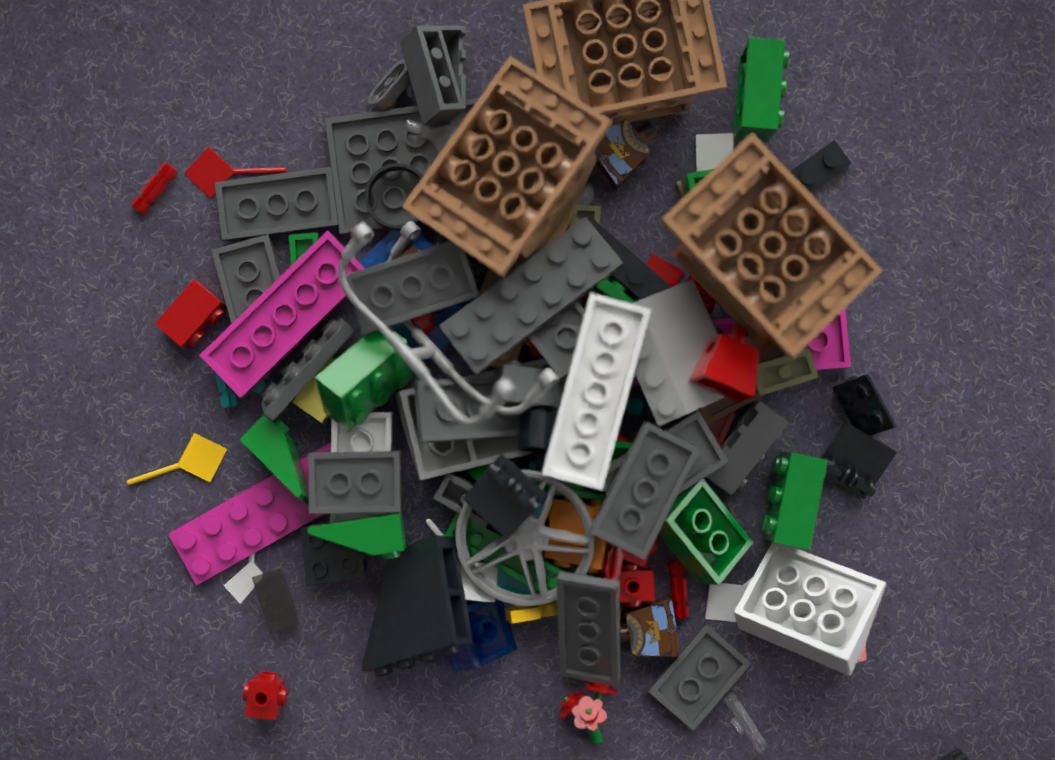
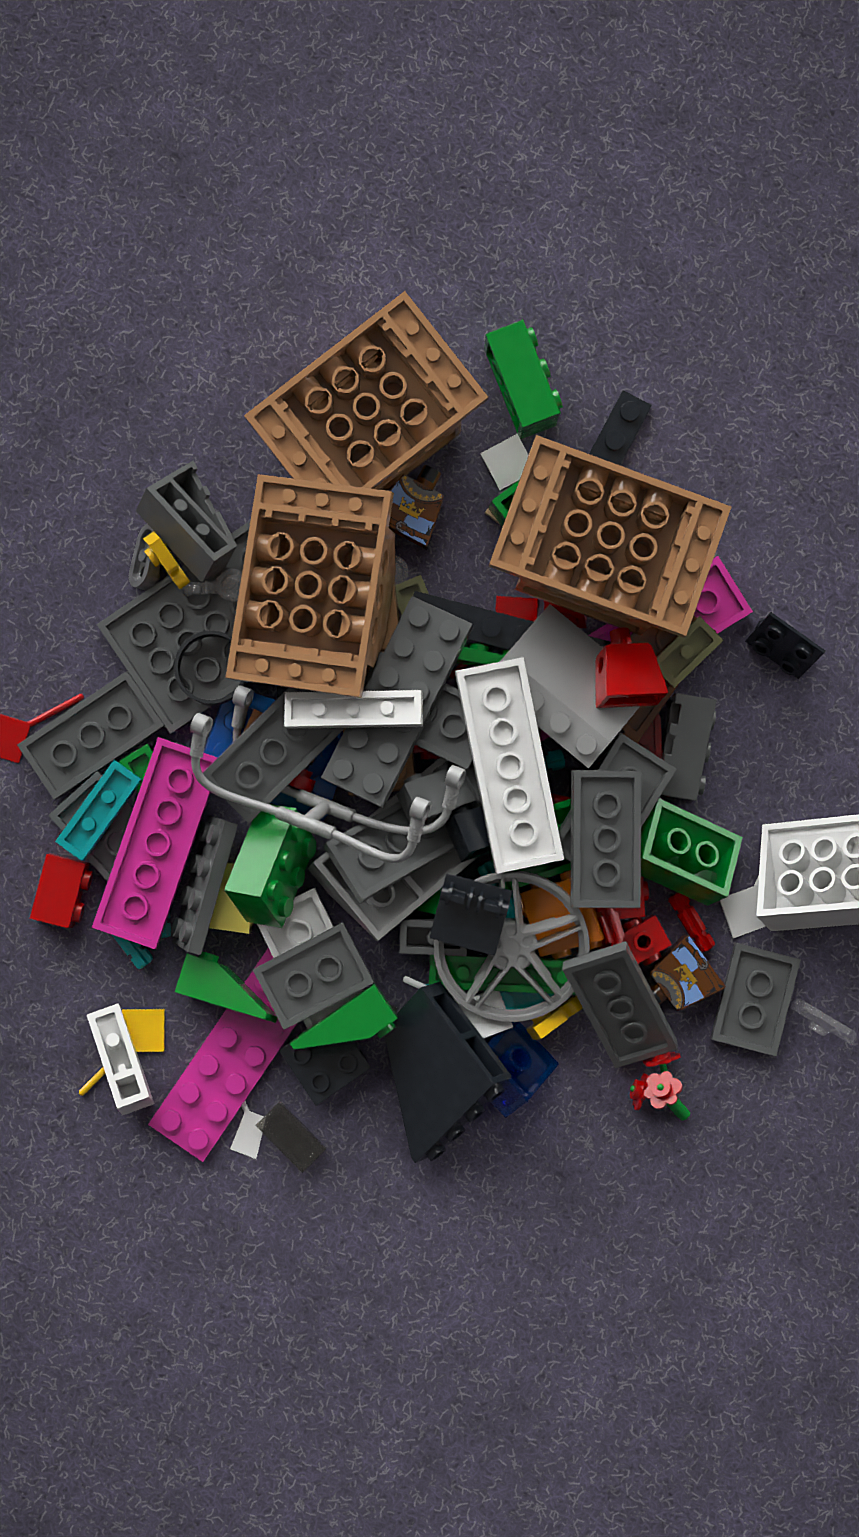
camera: 30 degrees left, 0 degrees up
(170, 472) = (120, 1060): none -> white slope
(251, 265) = (98, 810): none -> teal plate
(265, 695) = (327, 1248): red brick -> none
(401, 86) = (160, 554): none -> yellow plate
(505, 291) = (374, 709): none -> white plate
(793, 499) = (760, 774): green brick -> none
(857, 460) = (804, 704): black hinge -> none

